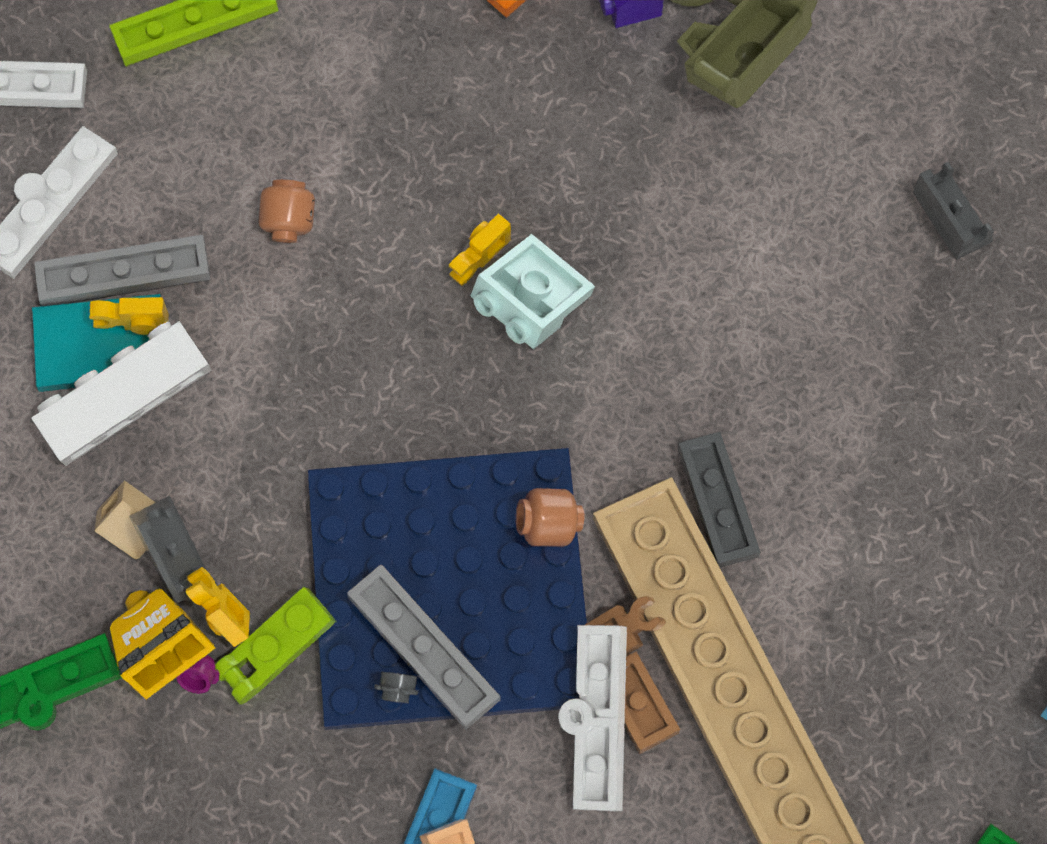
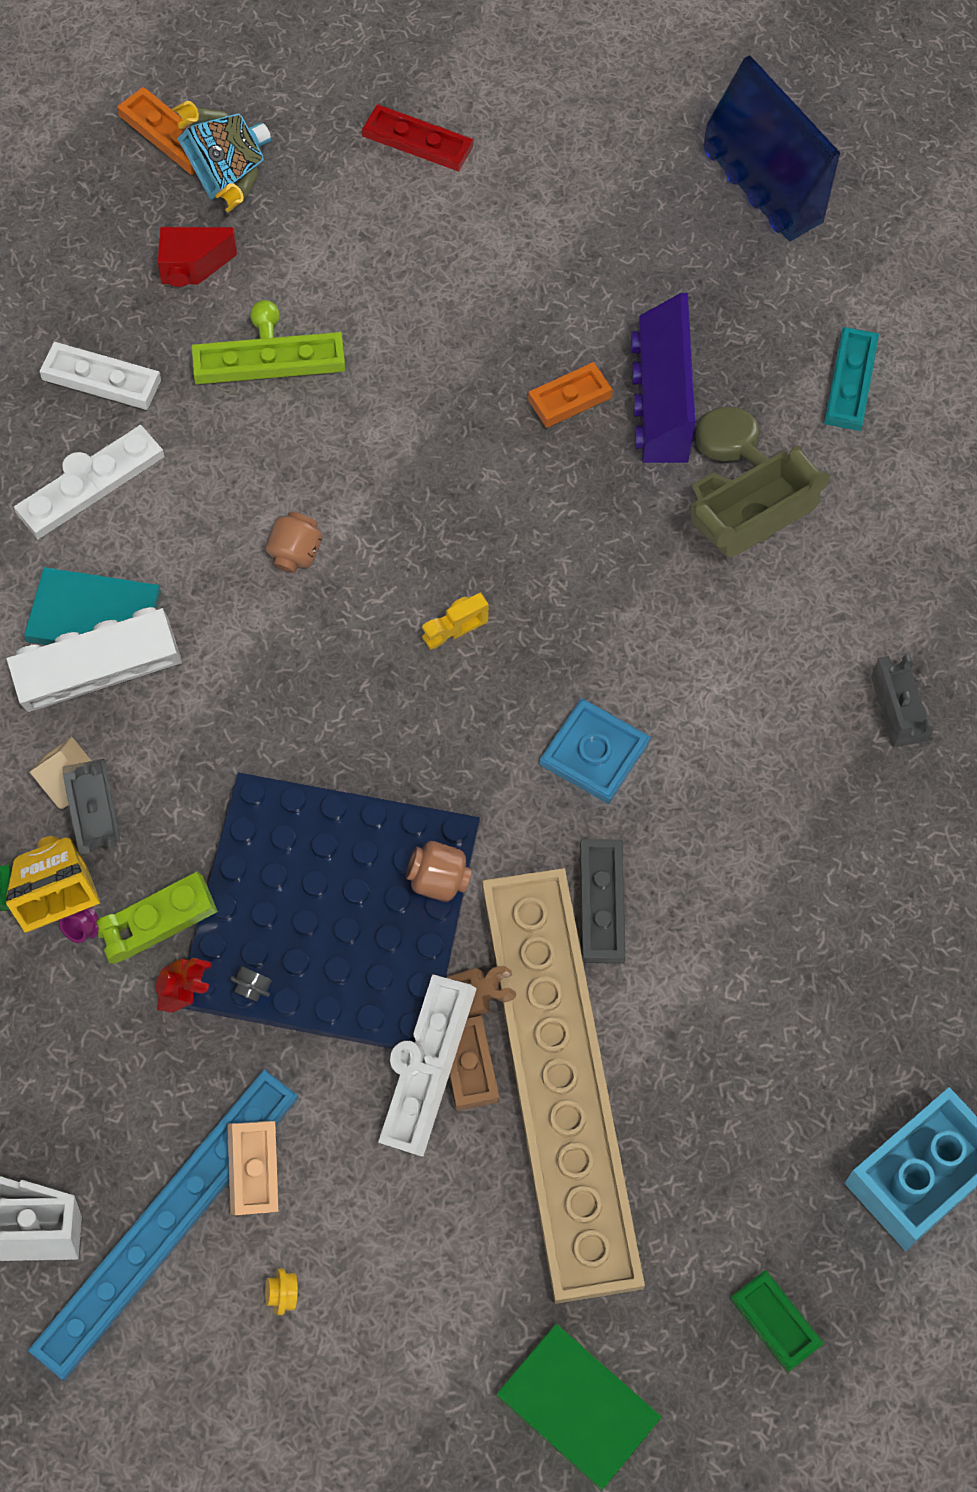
camera: 15 degrees right, 5 degrees down
(122, 270) = (133, 556): light grey plate -> none
(135, 314) = (128, 593): yellow plate -> none
(223, 610) = (119, 873): yellow plate -> none
(322, 704) = (179, 982): none -> red plate
(423, 647) = (287, 955): light grey plate -> none
(530, 291) = (488, 669): light aqua plate -> none
(662, 346) = (595, 751): none -> dark azure tile

